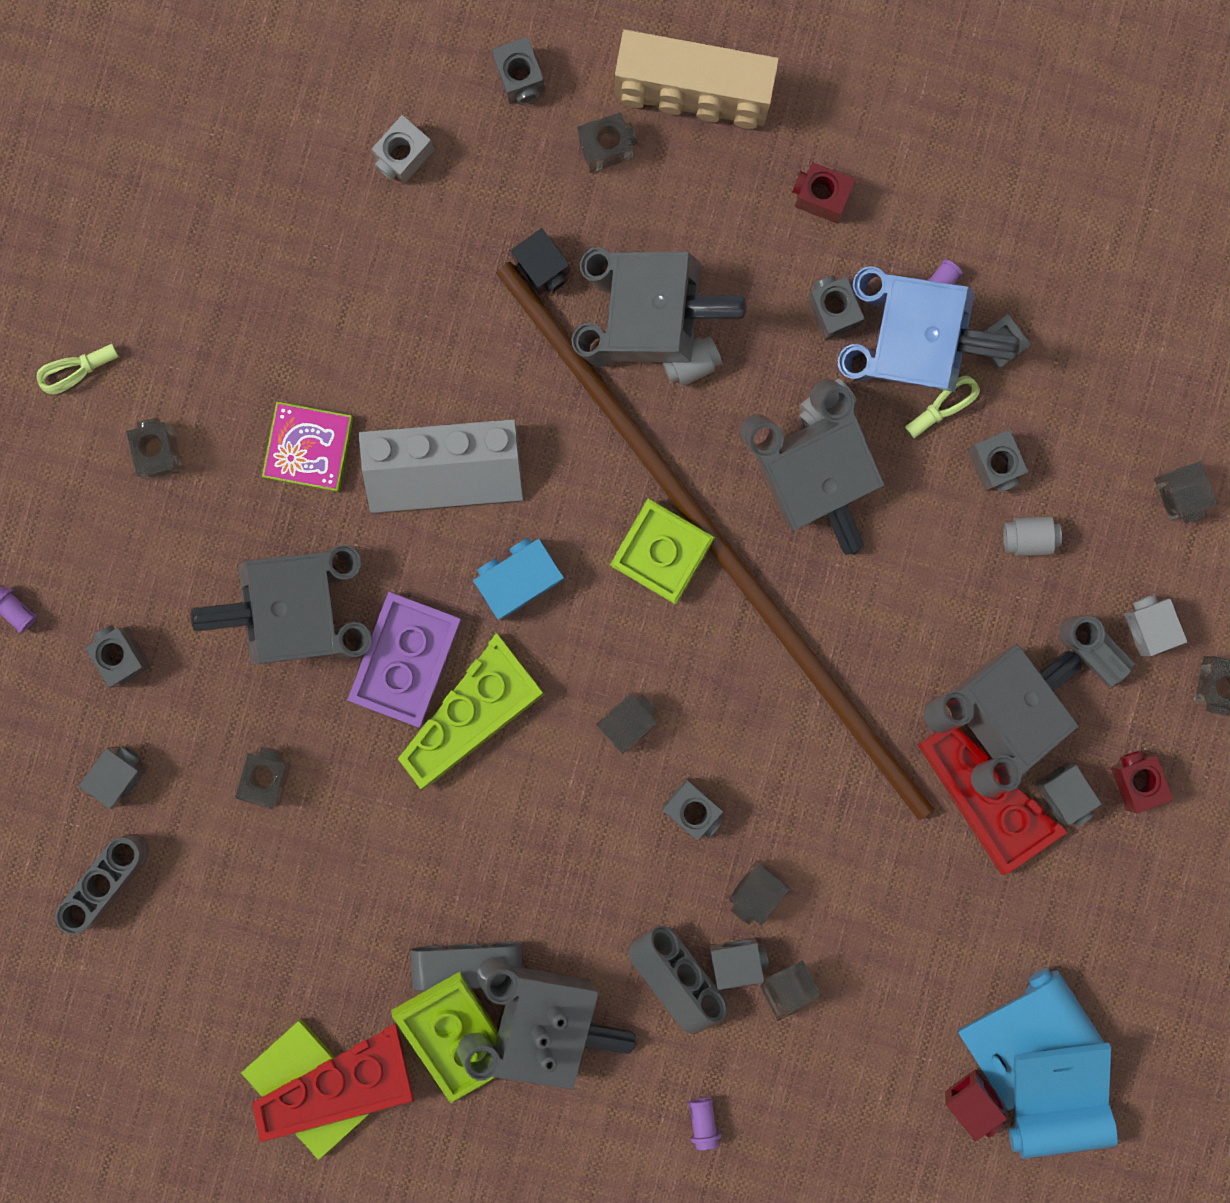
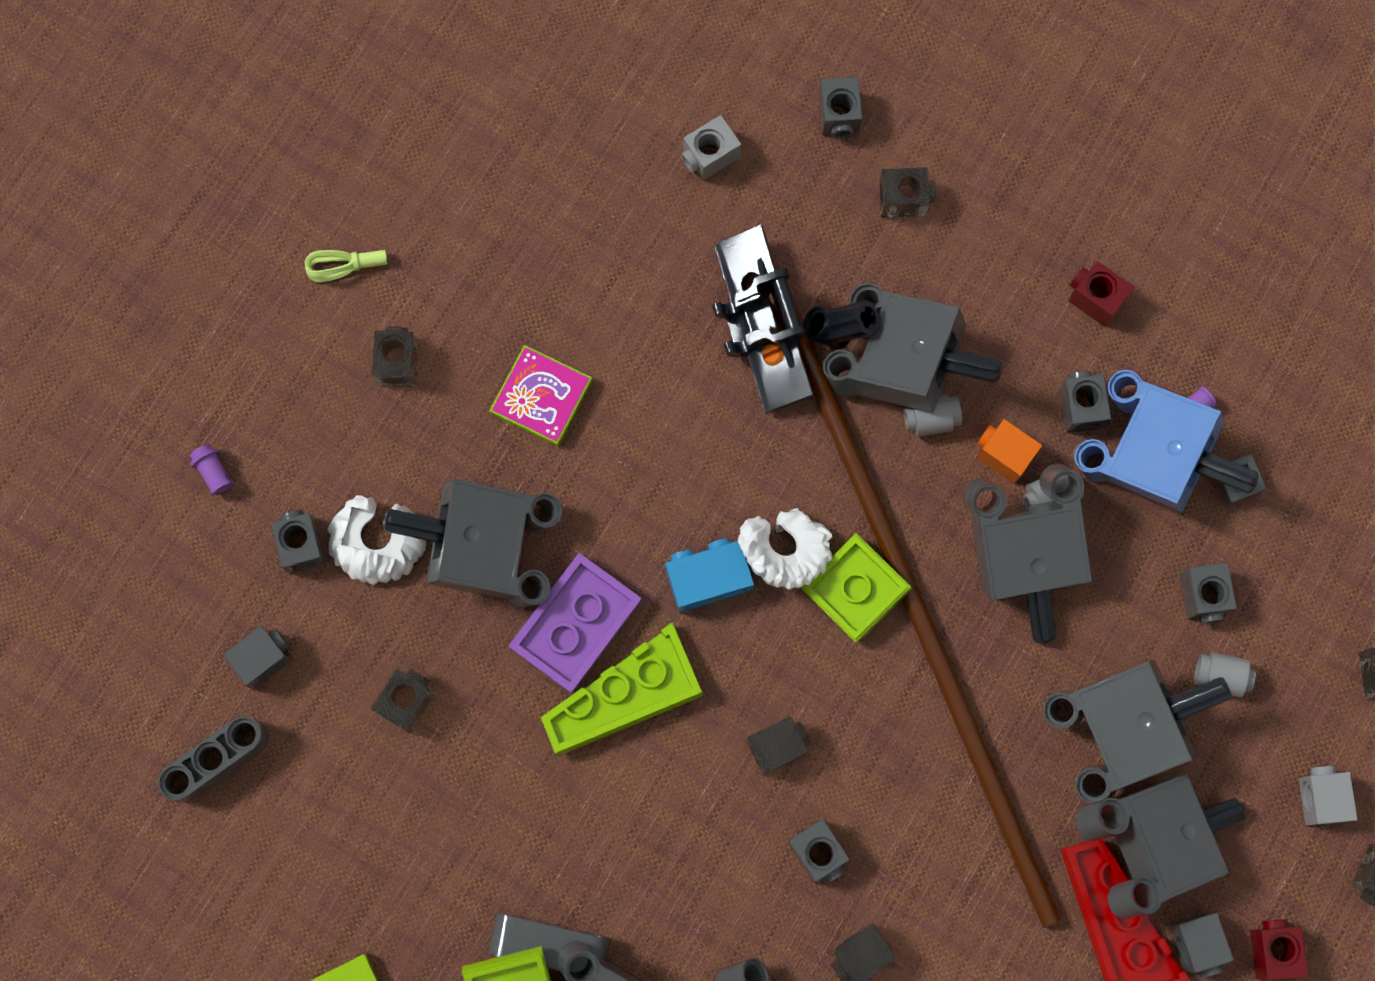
camera: 10 degrees right, 10 degrees down
(184, 657) = (365, 563): none -> white piece
(441, 466) = (664, 447): light grey slope -> none
(520, 344) = (753, 324): none -> piece
(541, 262) = (813, 283): black brick -> none
(578, 297) = (842, 324): none -> black piece
(591, 555) = (786, 571): none -> white piece
(694, 79) = (1005, 156): tan brick -> none
(772, 375) = (1007, 450): none -> orange brick
(933, 413) = (1155, 529): yellowish green piece -> none
(957, 612) = (1135, 724): none -> dark grey piece
(1098, 650) = (1265, 806): dark grey piece -> none

